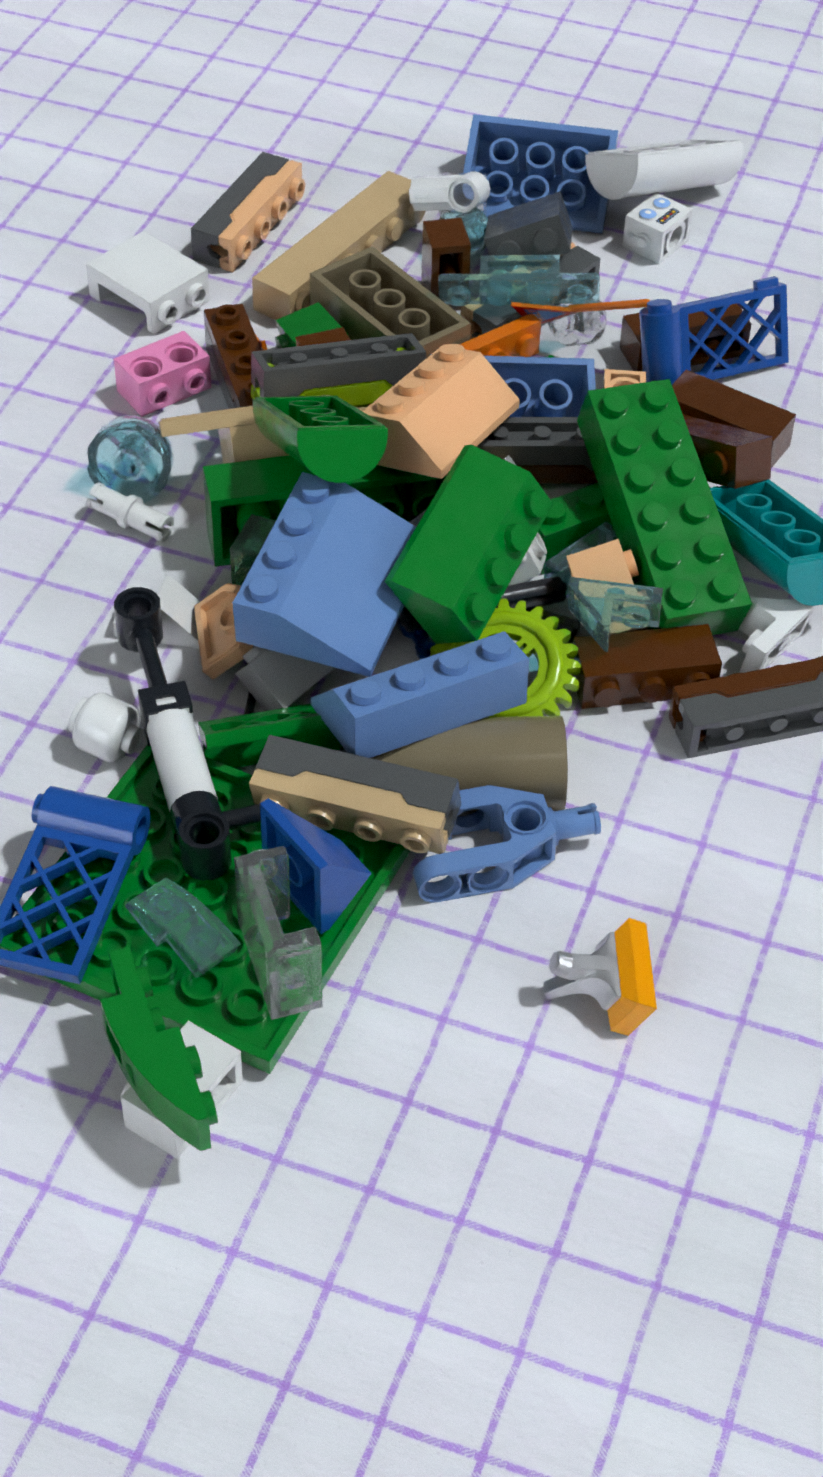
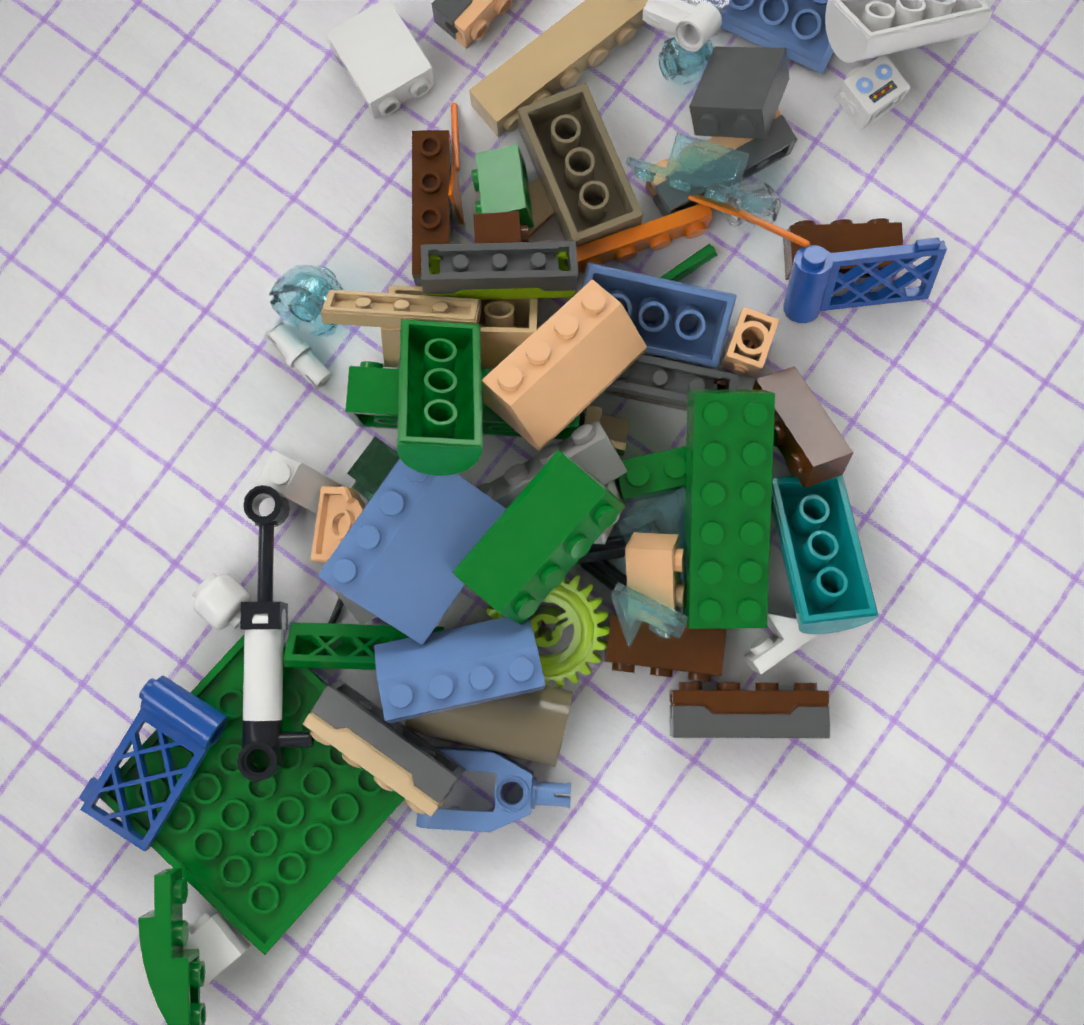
camera: 20 degrees right, 35 degrees up
(162, 373) = (362, 179): bright pink brick -> none
(186, 924) = (226, 831): clear light blue slope -> none
(284, 964) = (274, 907): clear panel -> none
(321, 867) = (329, 816): blue slope -> none
(444, 251) = (650, 112): reddish brown brick -> none
(614, 974) = (532, 947): piece -> none
(727, 406) = (838, 373): reddish brown brick -> none

